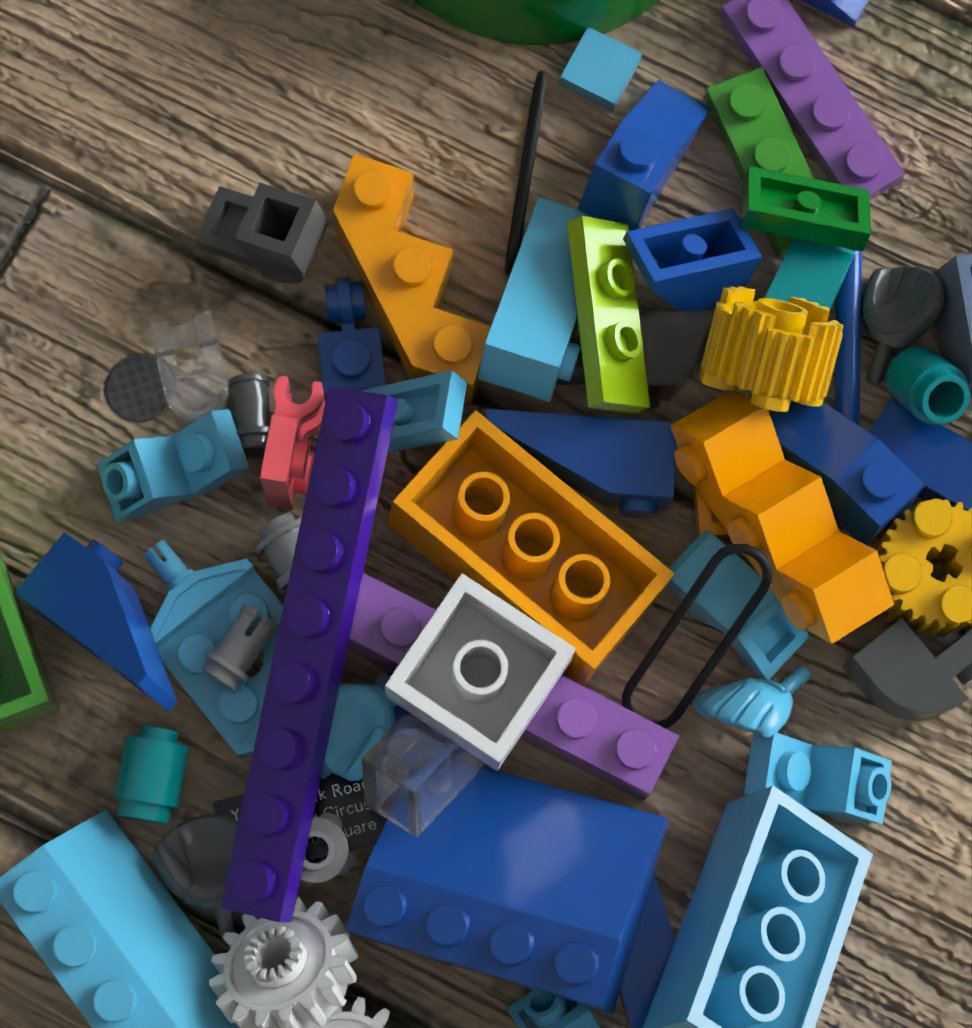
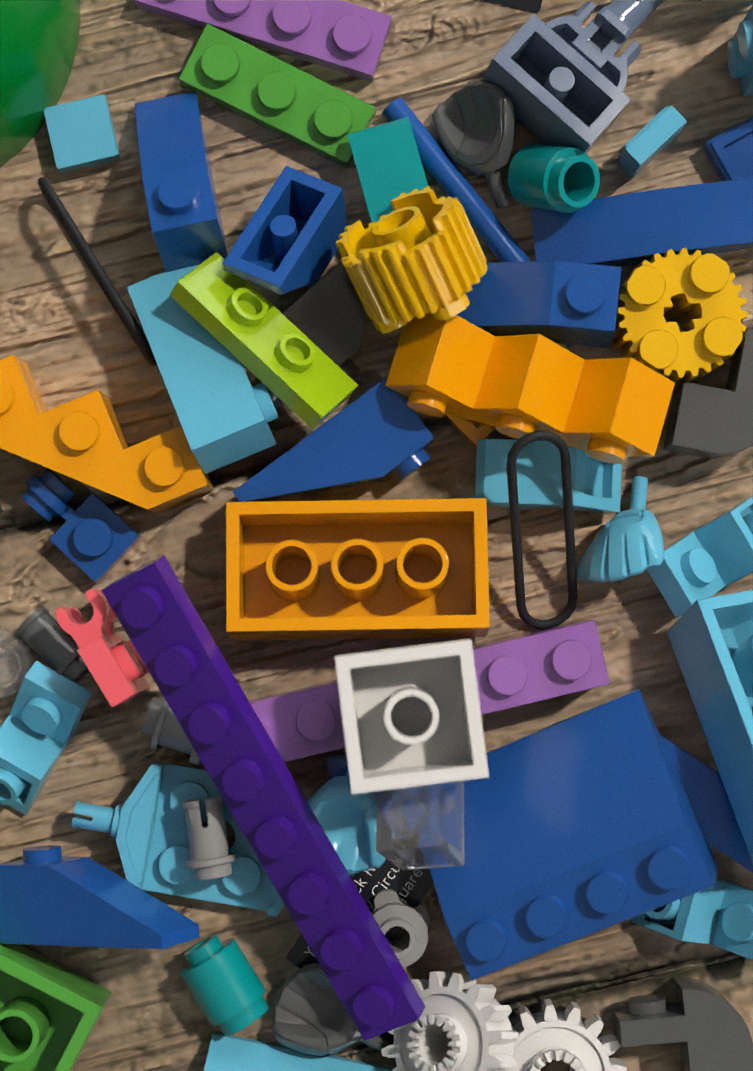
camera: 30 degrees left, 10 degrees up
(426, 409) = (187, 535): medium azure plate -> none
(805, 208) = (342, 117): green plate -> none

